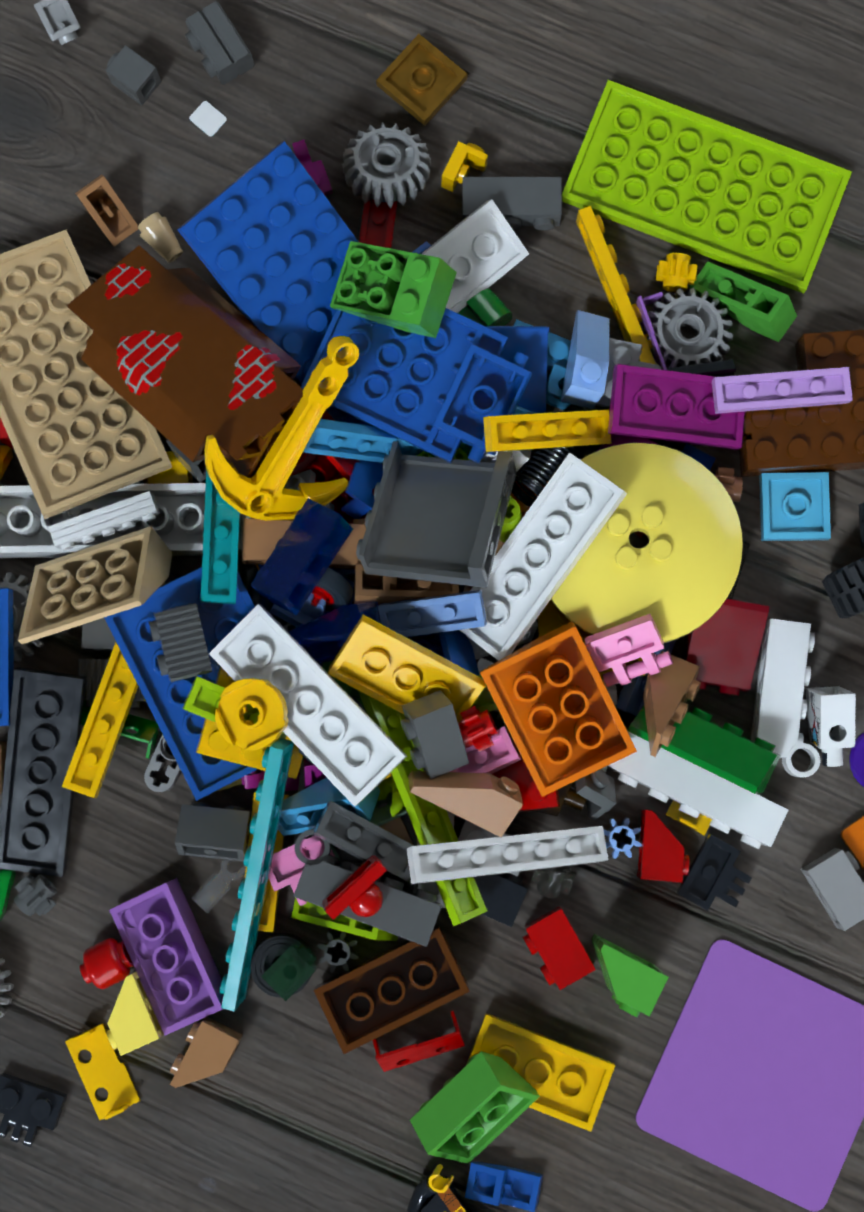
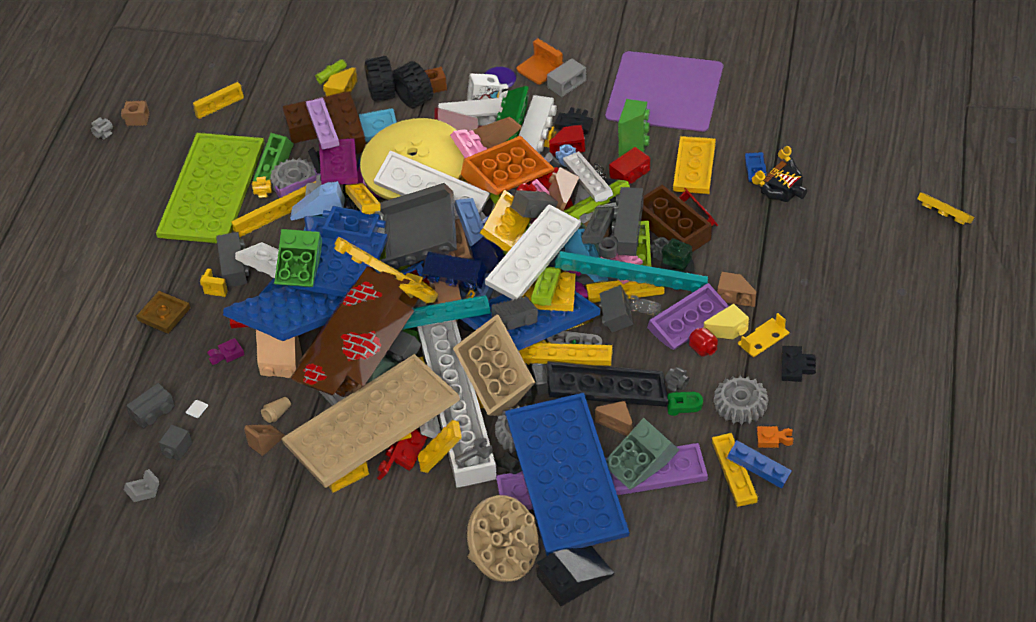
camera: 105 degrees left, 35 degrees down
(104, 521) = (454, 377): white piece -> none
(243, 732) = (544, 277): yellow plate -> none
(358, 891) = (622, 212): red tile -> none
(386, 165) = (209, 312): light grey gear -> none
(472, 1108) = (719, 178): bright green slope -> none

